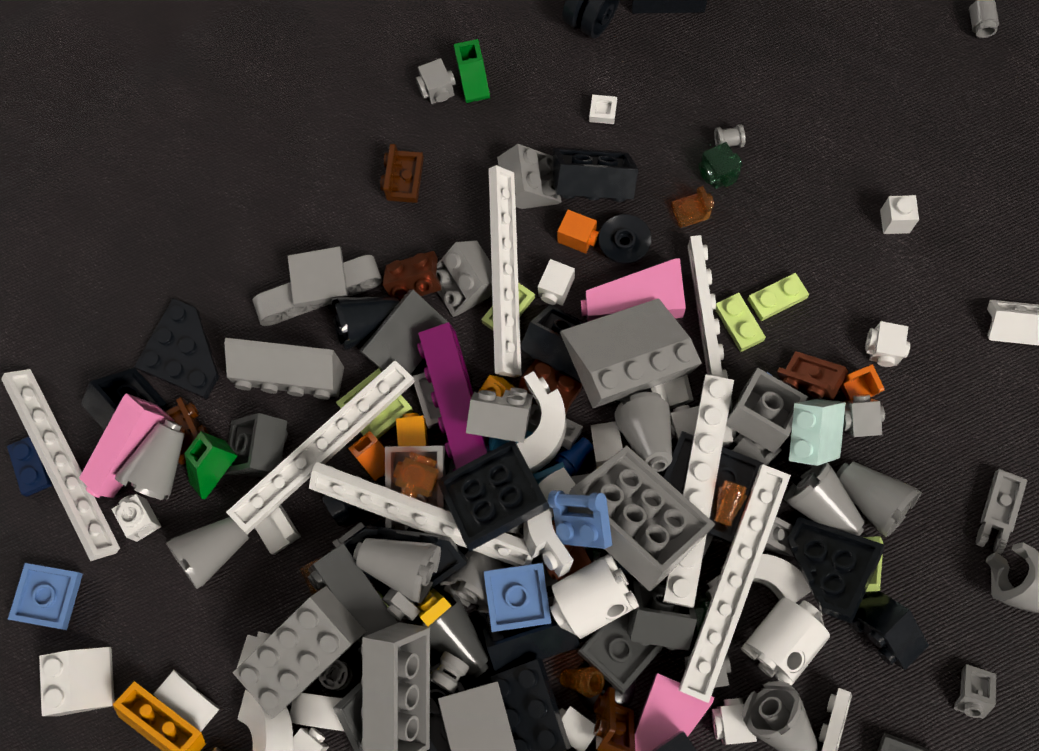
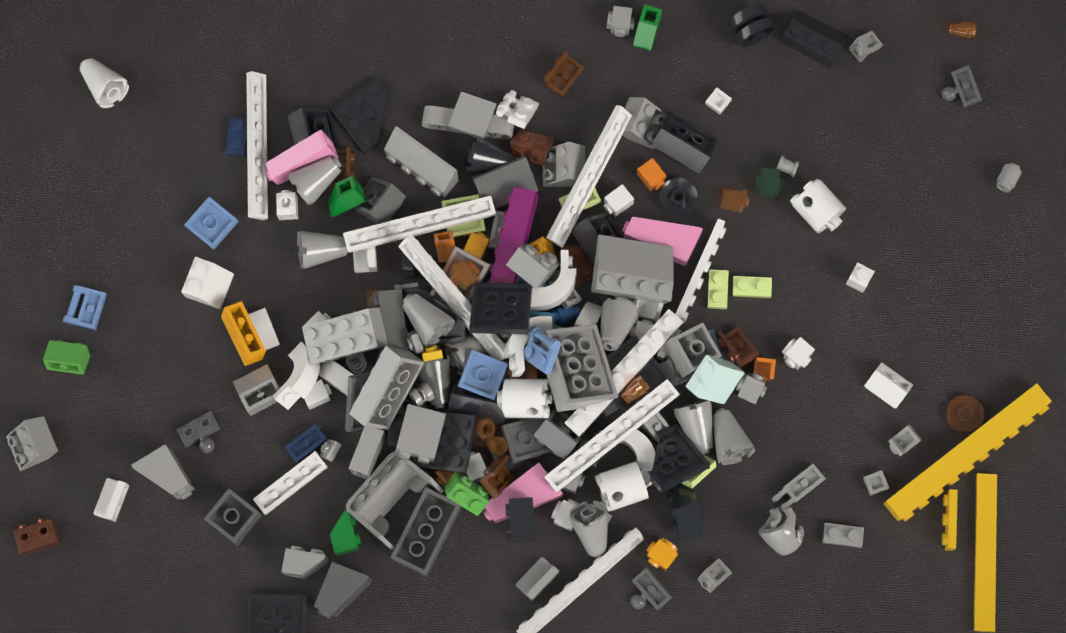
camera: 25 degrees right, 5 degrees up
(373, 243) = (523, 109): none -> white plate
(559, 667) = (488, 428): none -> clear orange cone
(809, 163) = (819, 206): none -> white cylinder
(891, 703) = (661, 553): none -> light orange brick

